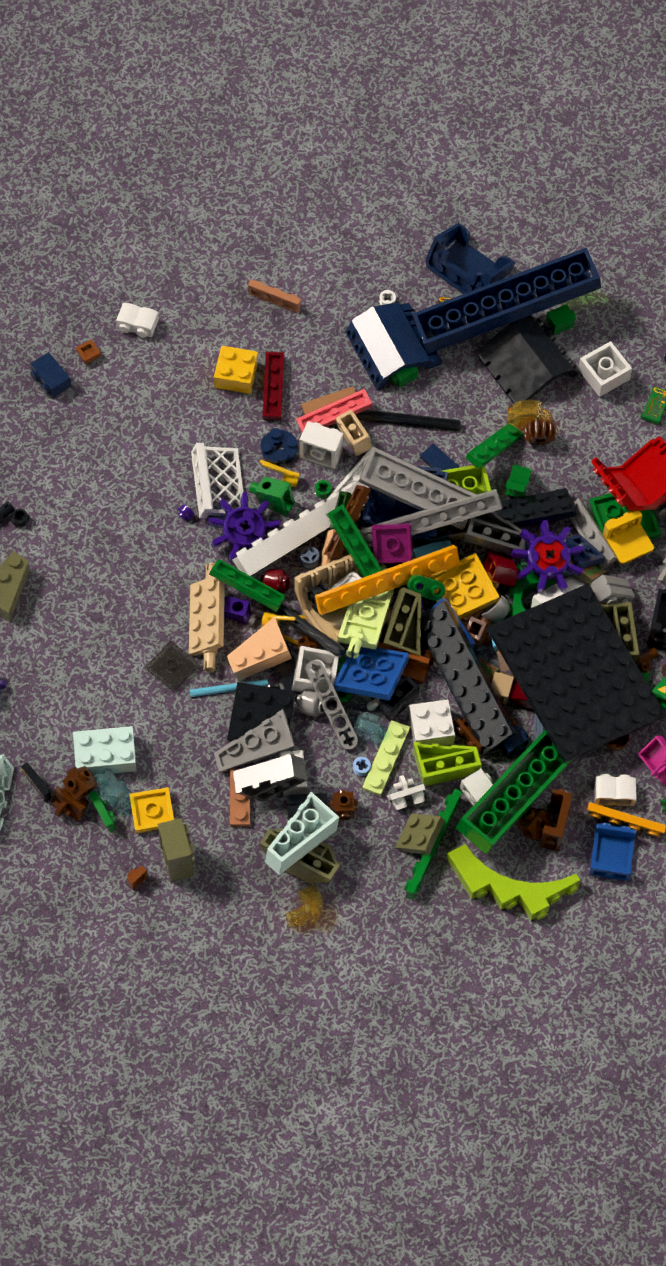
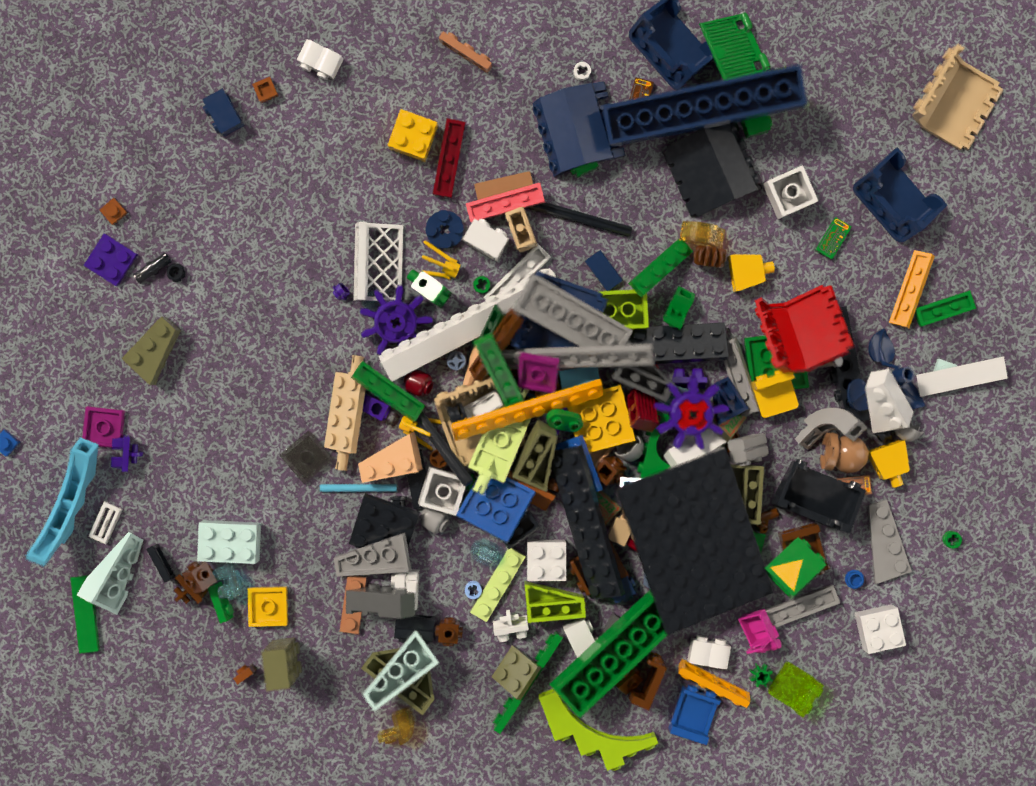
camera: 10 degrees right, 25 degrees up
(338, 712) = (451, 523): light grey beam -> none
(520, 255) = (734, 48): none -> green window
(579, 441) = (748, 270): none -> yellow torso

